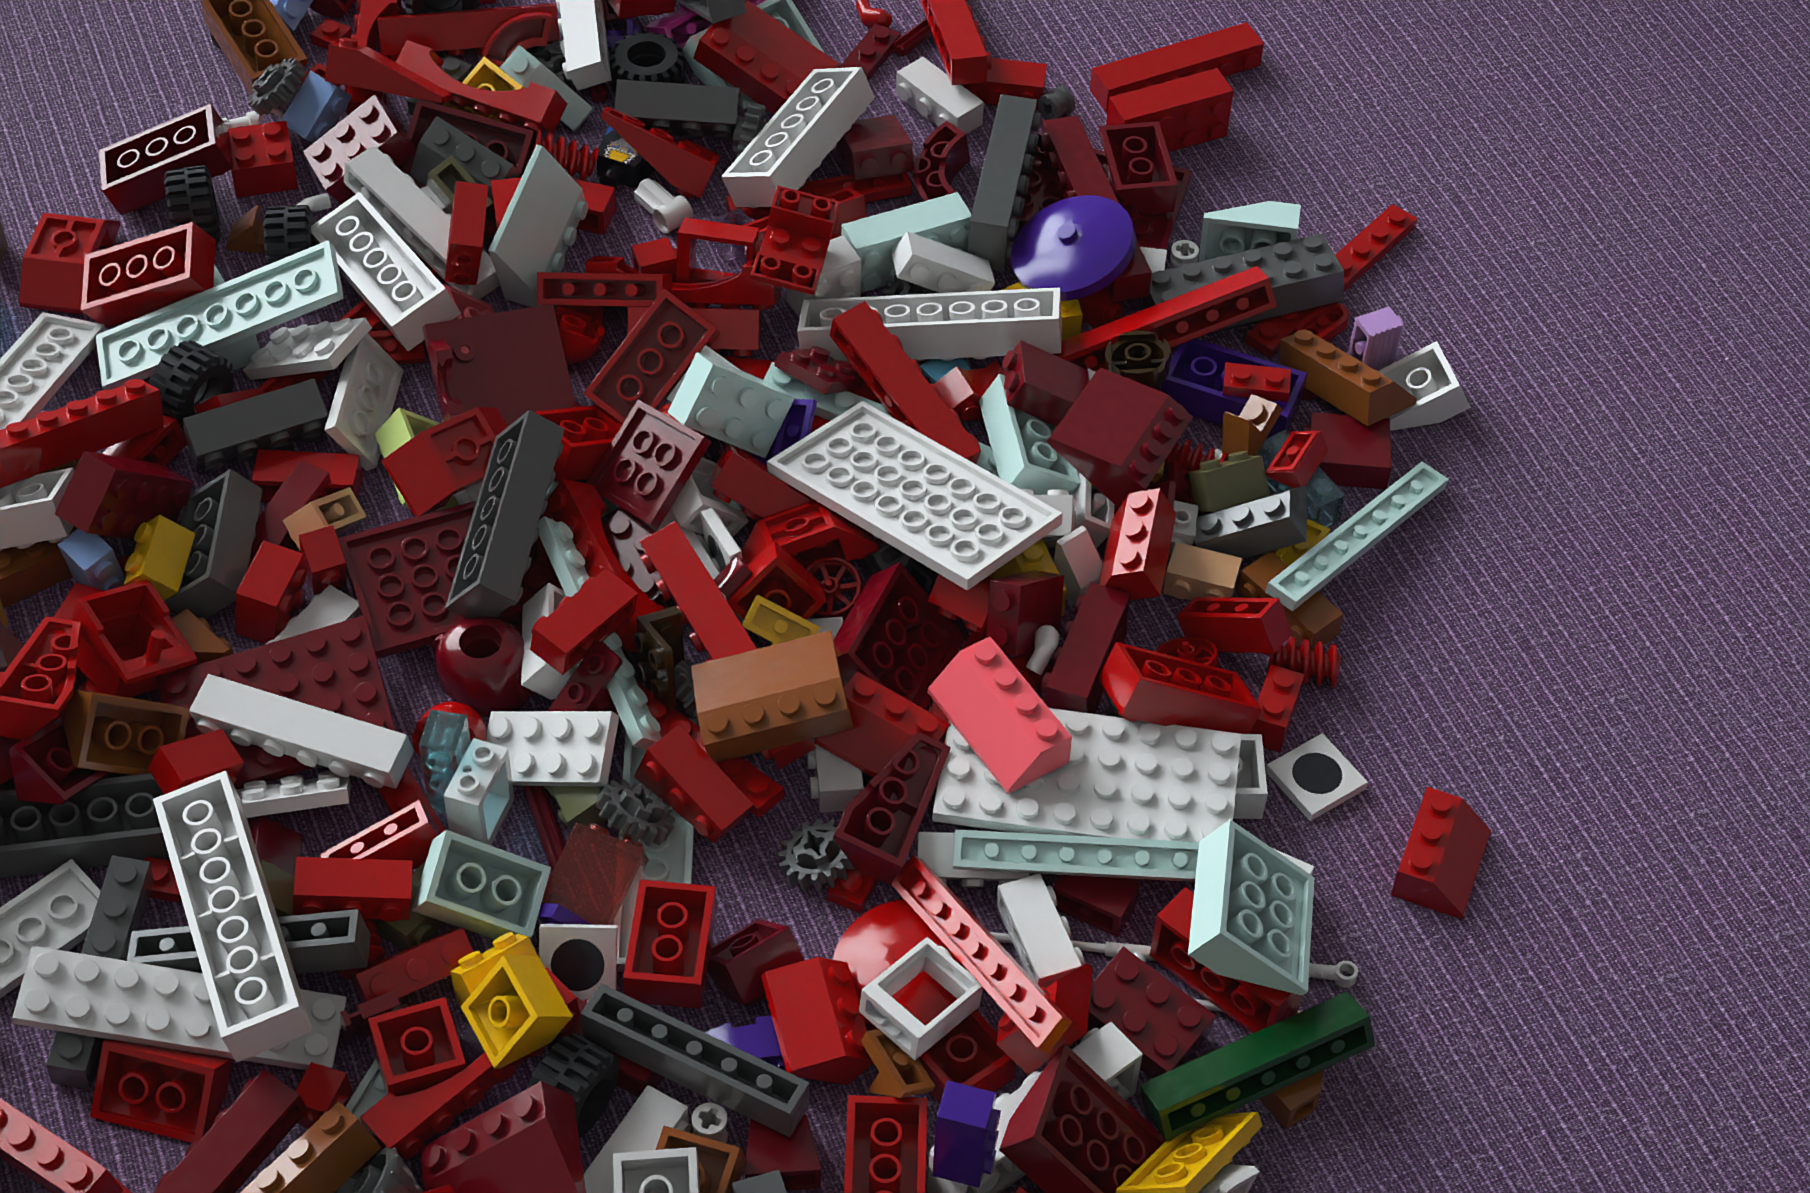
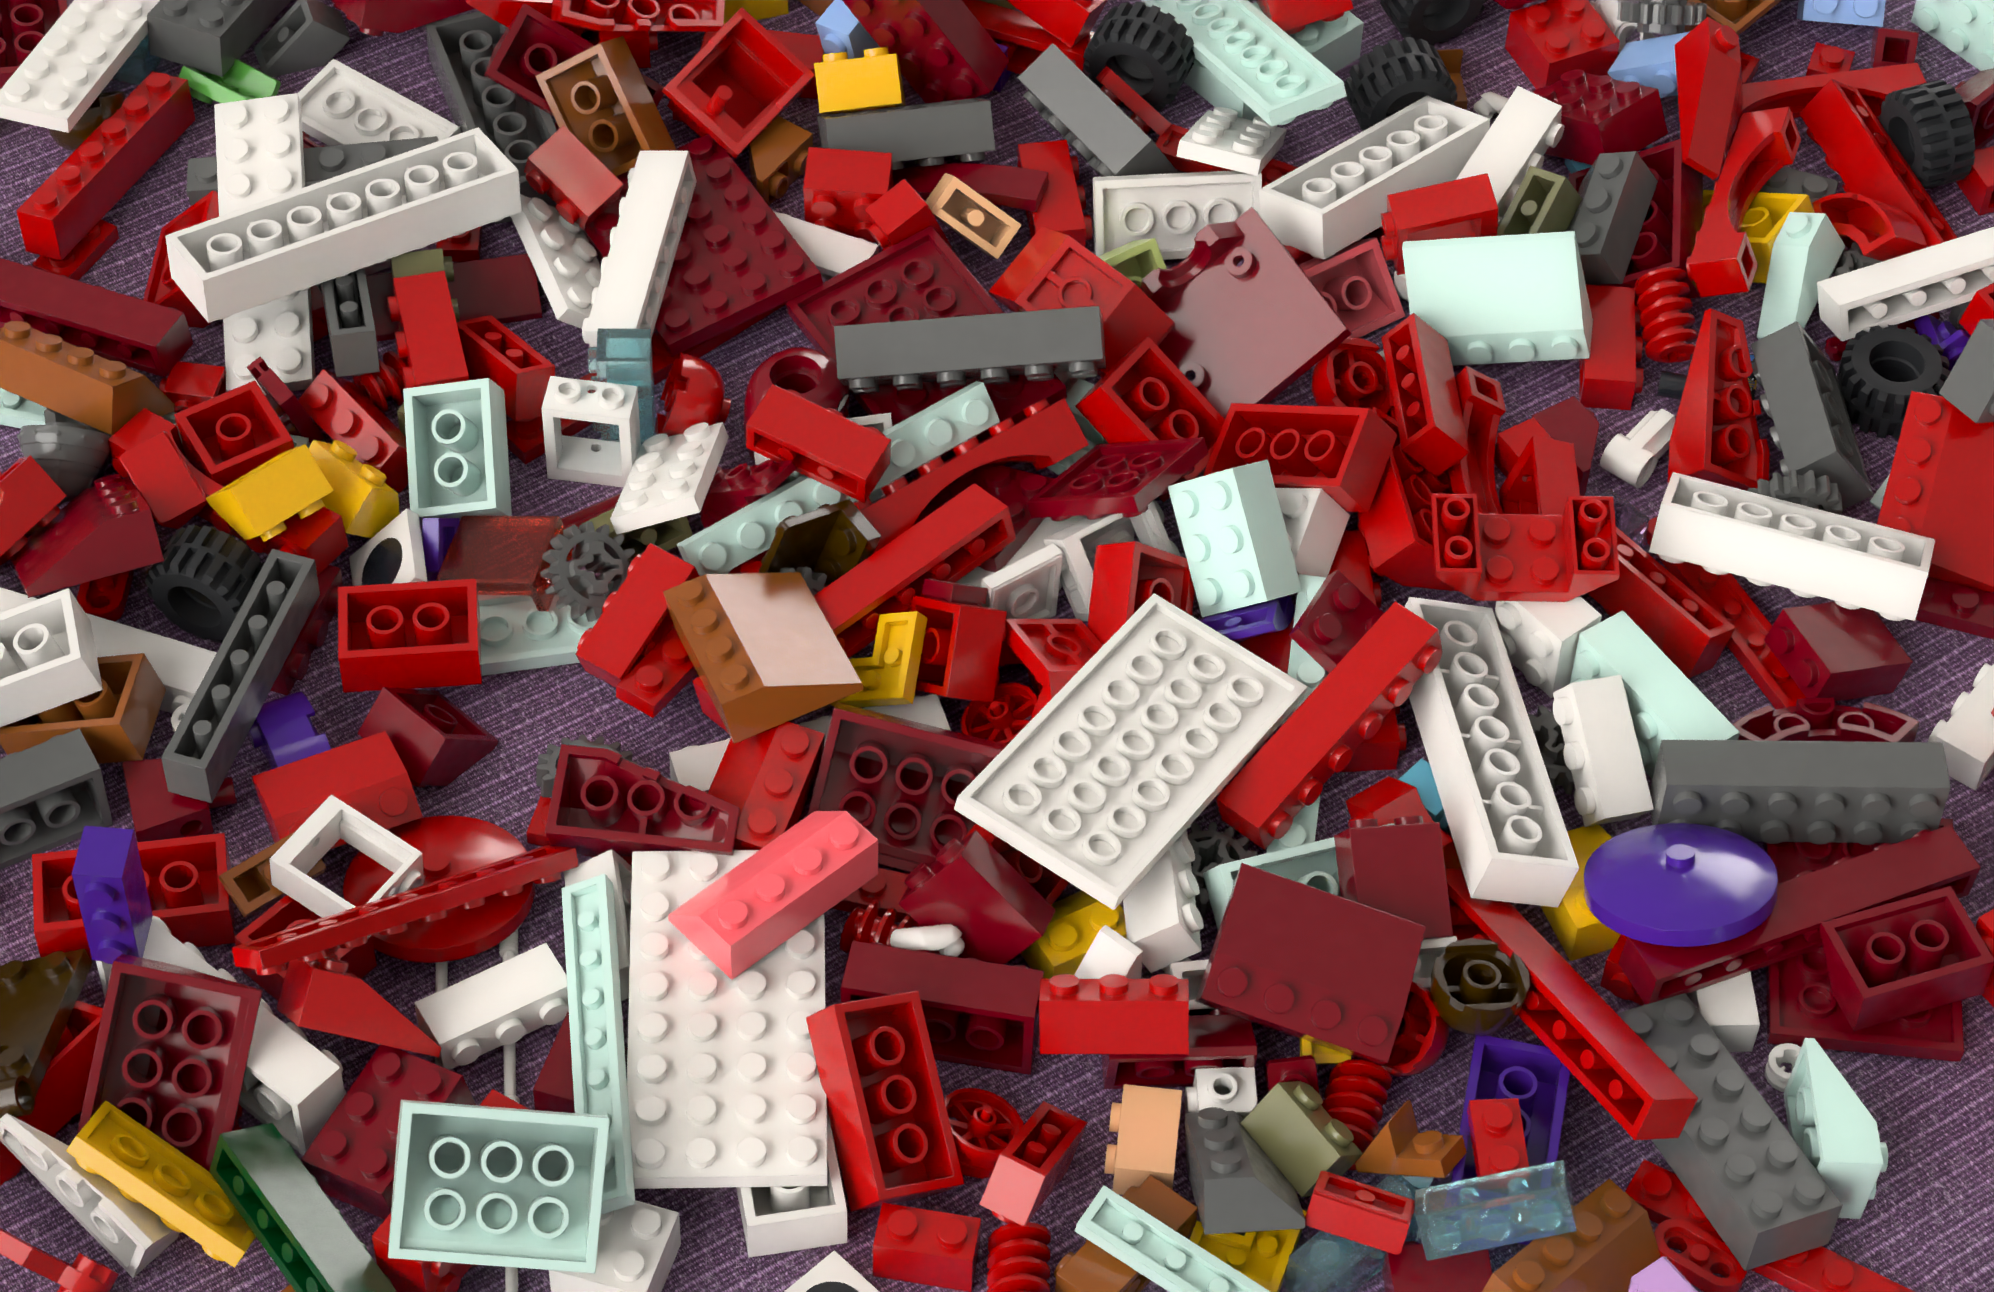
camera: 80 degrees right, 0 degrees up
(459, 1098) = (164, 480): none -> red slope
(645, 229) = (1573, 424): none -> dark red slope
(1313, 385) = (1495, 1210): none -> clear light blue brick

